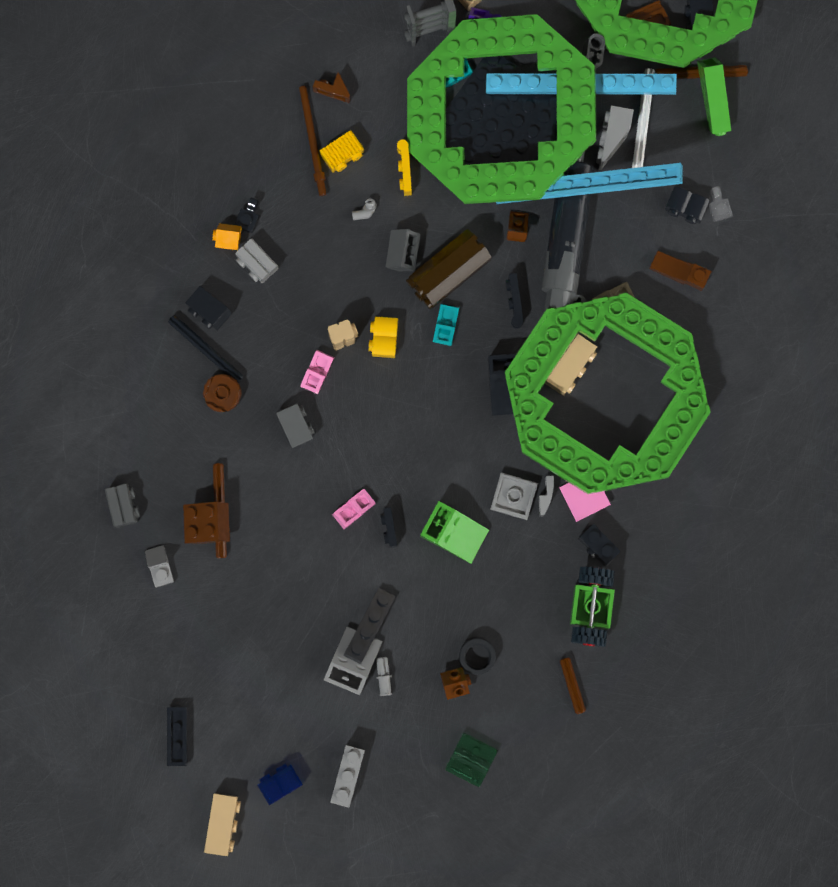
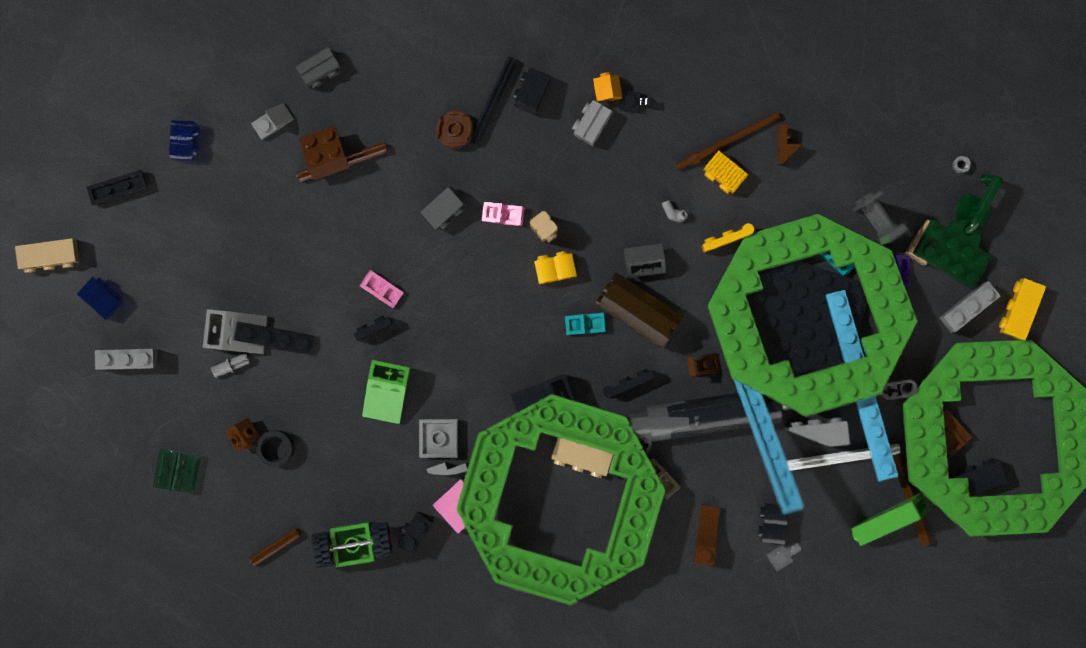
camera: 80 degrees right, 5 degrees up
(150, 657) = (183, 139): none -> clear blue brick

